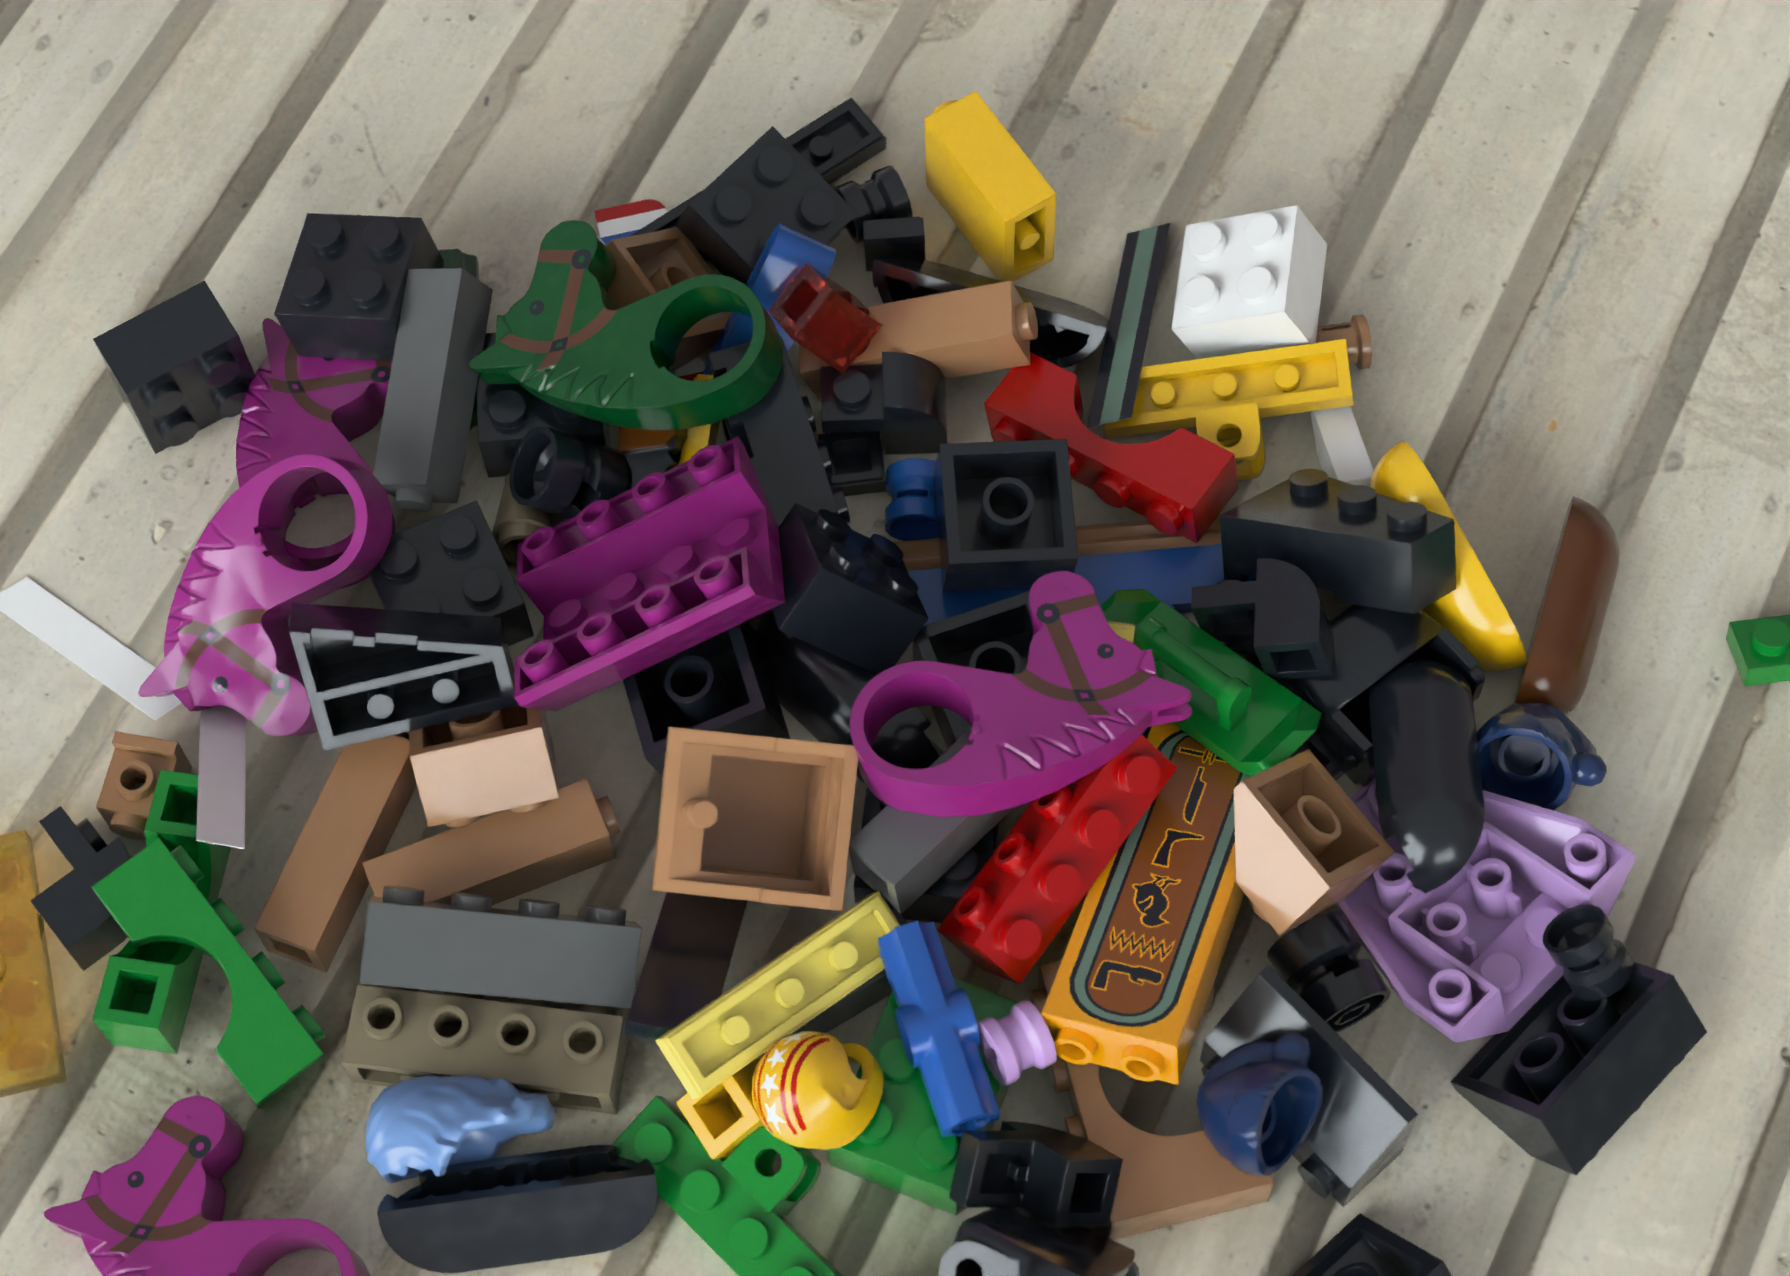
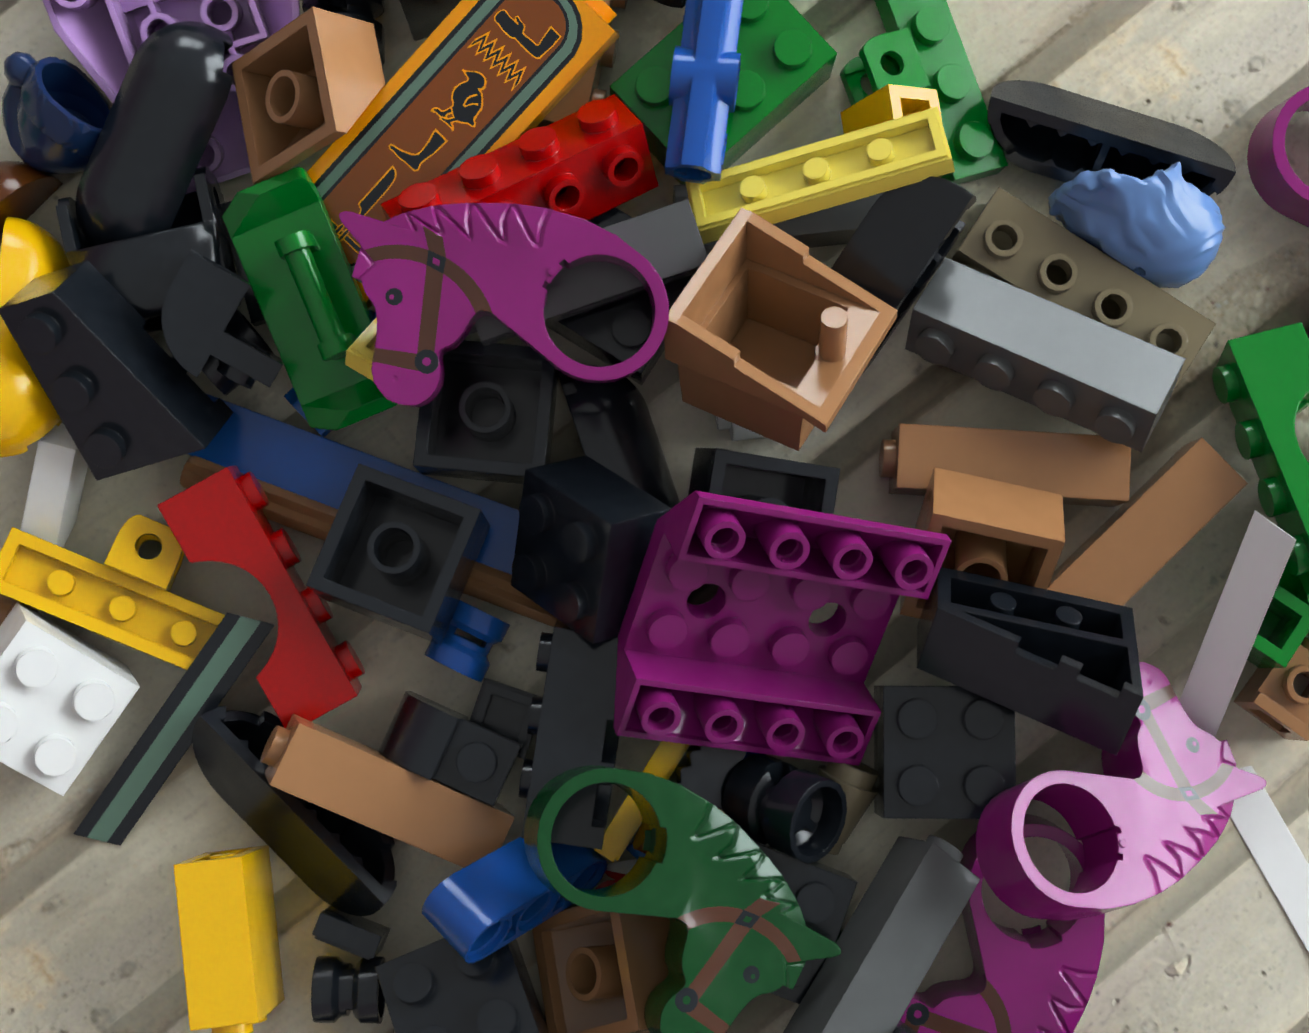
camera: 160 degrees left, 20 degrees up
(810, 1092) = (839, 81): yellow helmet -> none
(825, 318) = (470, 833): clear red brick -> none
(1016, 1043) = (645, 35): lavender wheel -> none

